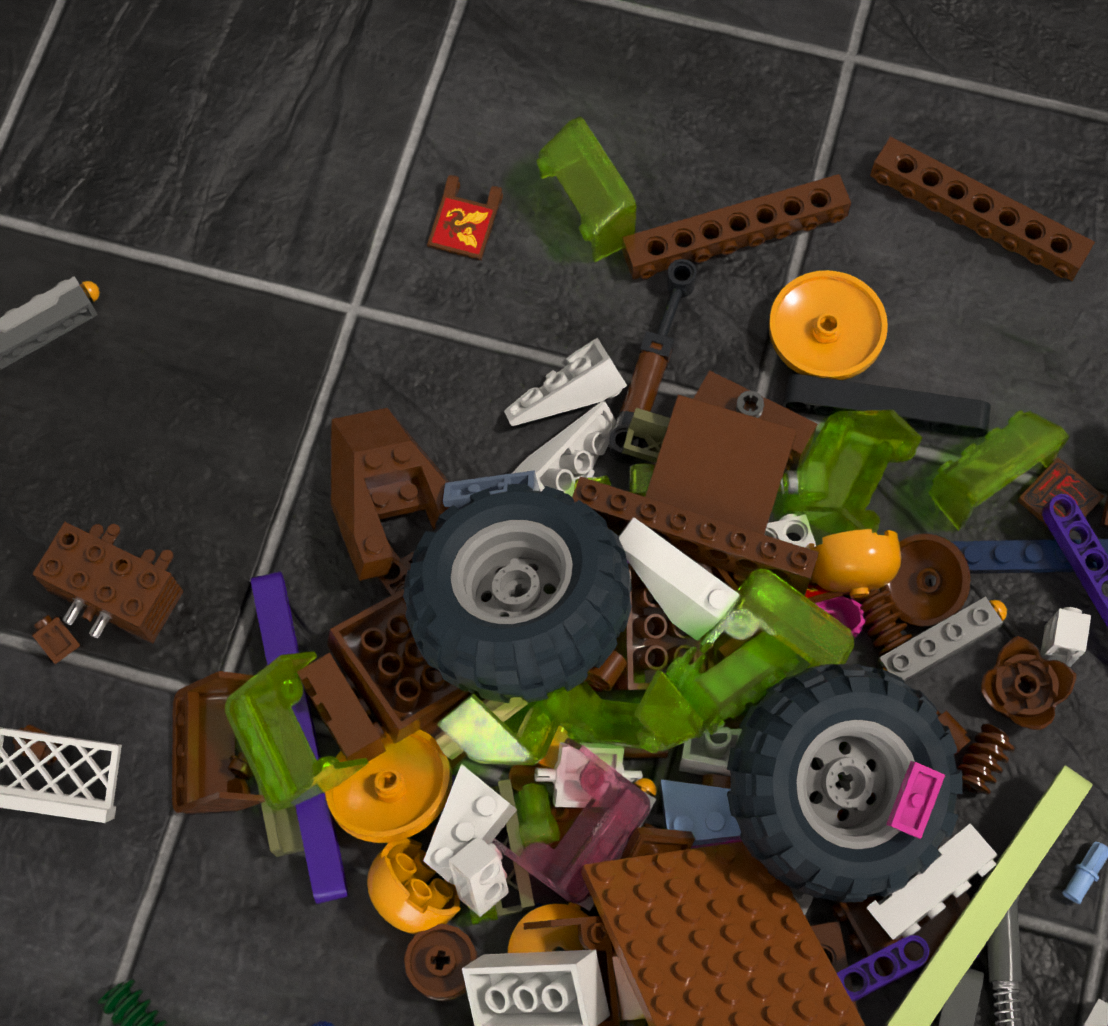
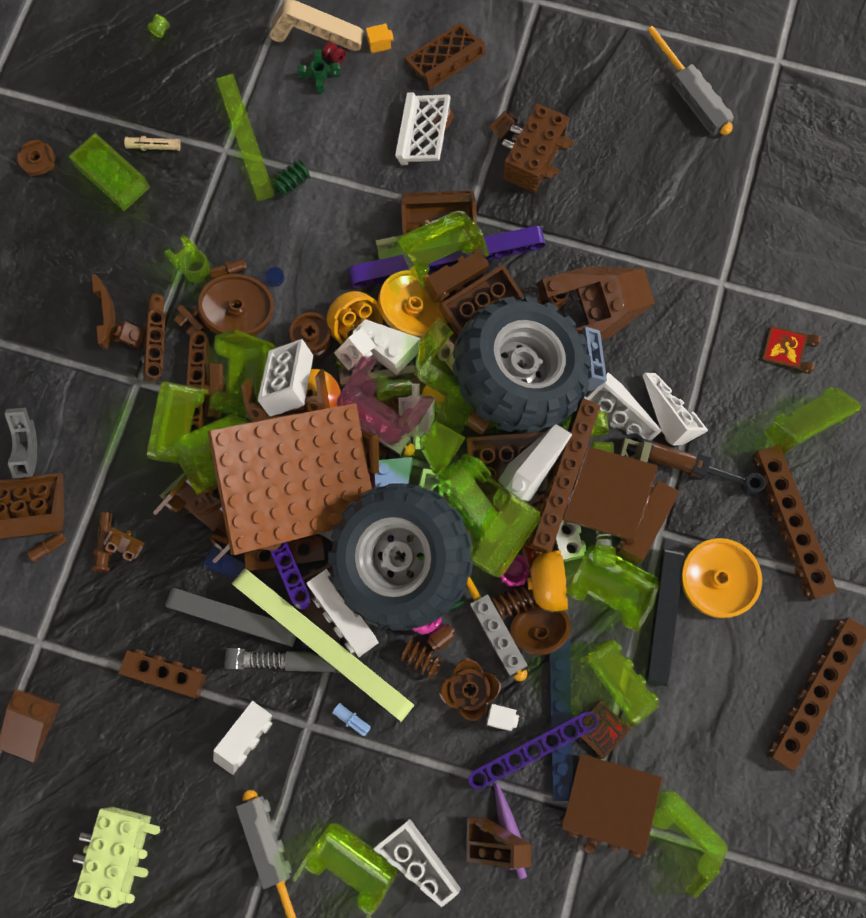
camera: 90 degrees right, 5 degrees up
(750, 396) = (654, 521): dark grey bush -> none
(915, 799) = (380, 589): dark pink plate -> none

